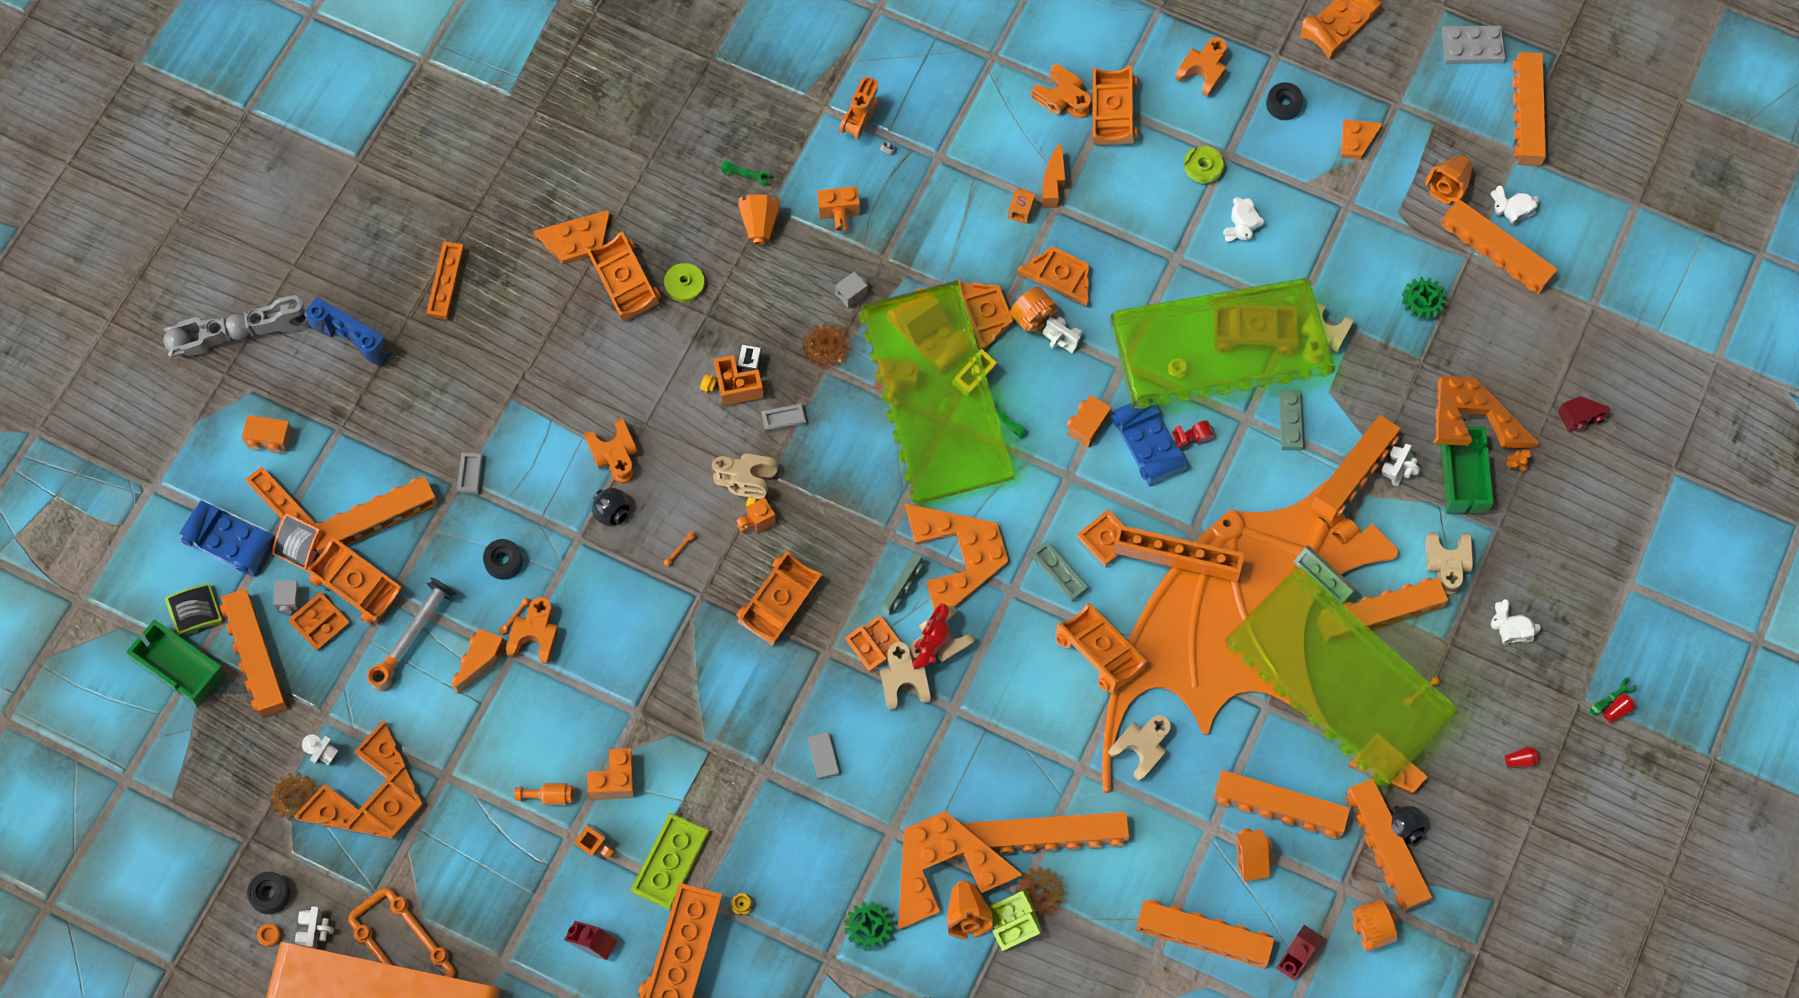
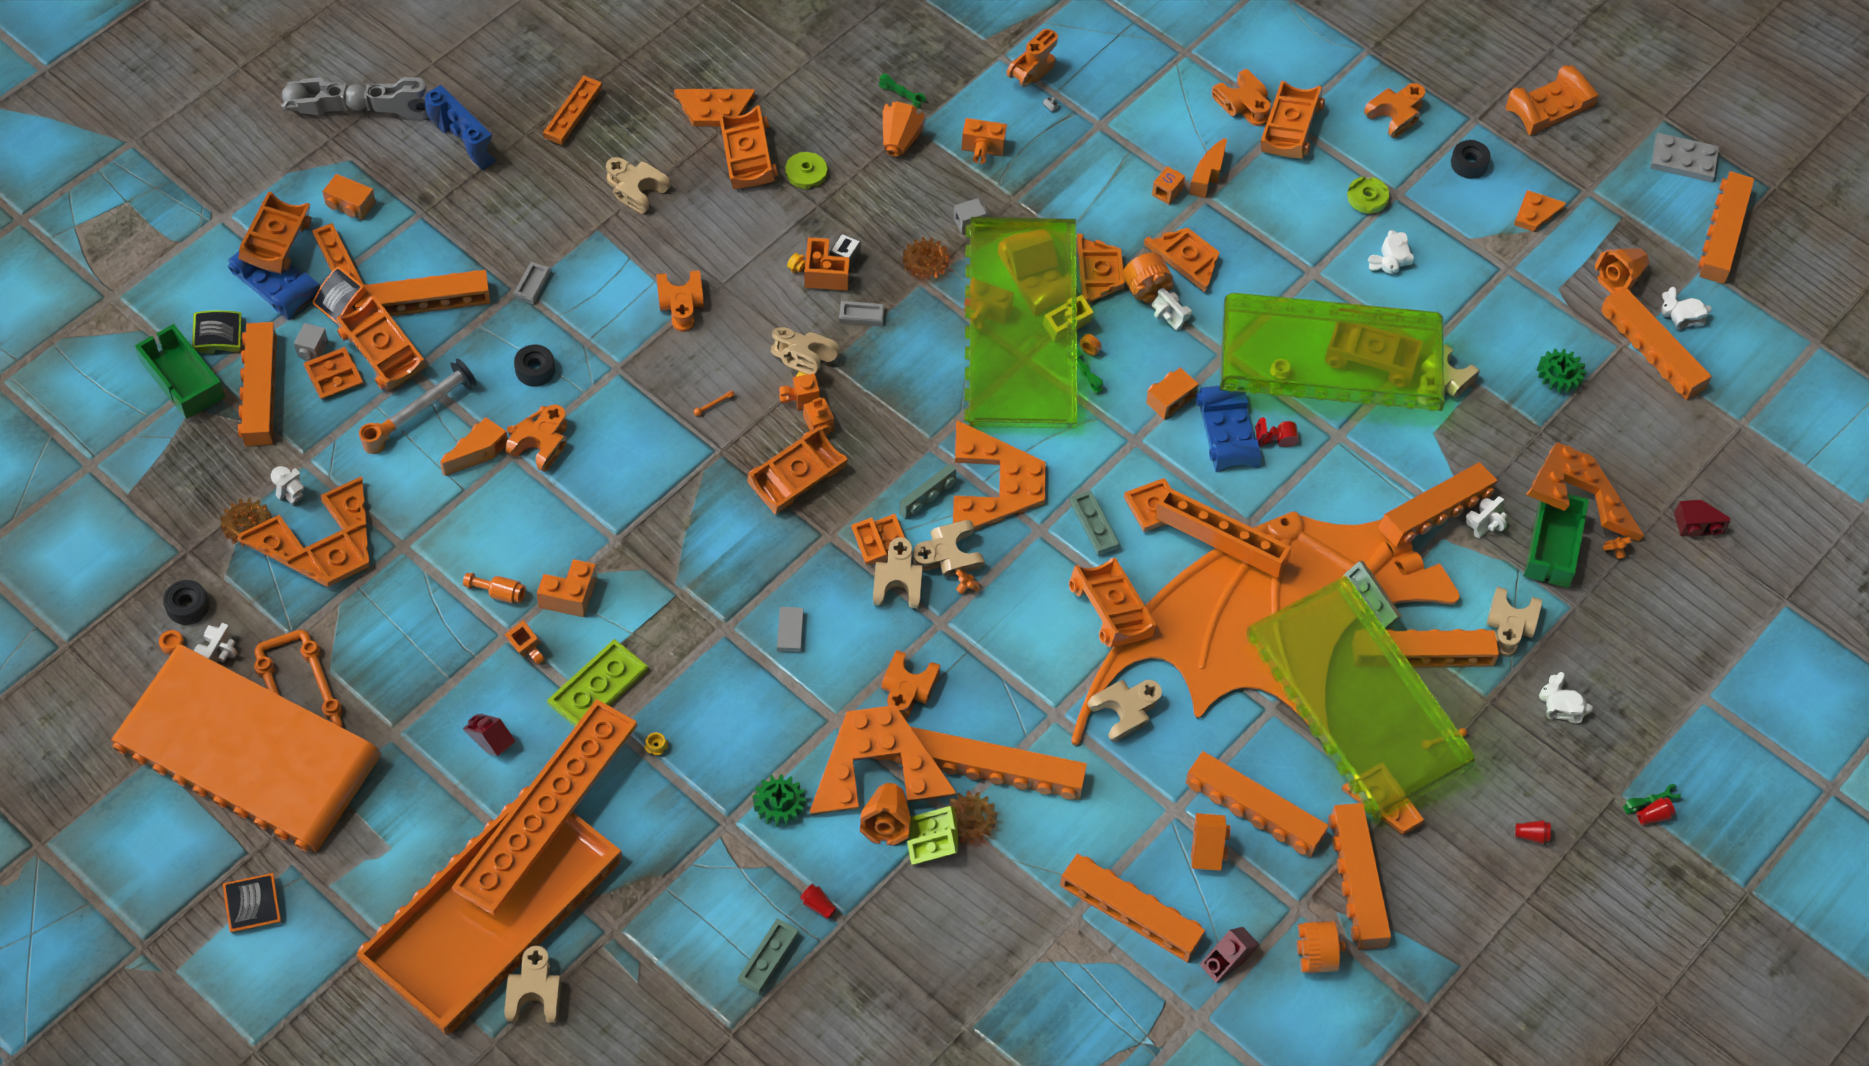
camera: 15 degrees right, 10 degrees down
(213, 495) = (273, 234): none -> orange piece
(527, 340) = (632, 181): none -> tan piece
(611, 504) = (659, 342): black plant -> none
(780, 538) = (818, 414): none -> orange brick
(935, 634) = (943, 542): red animal -> none
(945, 783) = (908, 687): none -> orange piece
(965, 663) = (967, 581): none -> orange plant
(1001, 392) = (1090, 344): none -> orange tile
(1290, 420) = (1384, 447): sand green plate -> none
(1408, 823) = (1389, 860): black plant -> none

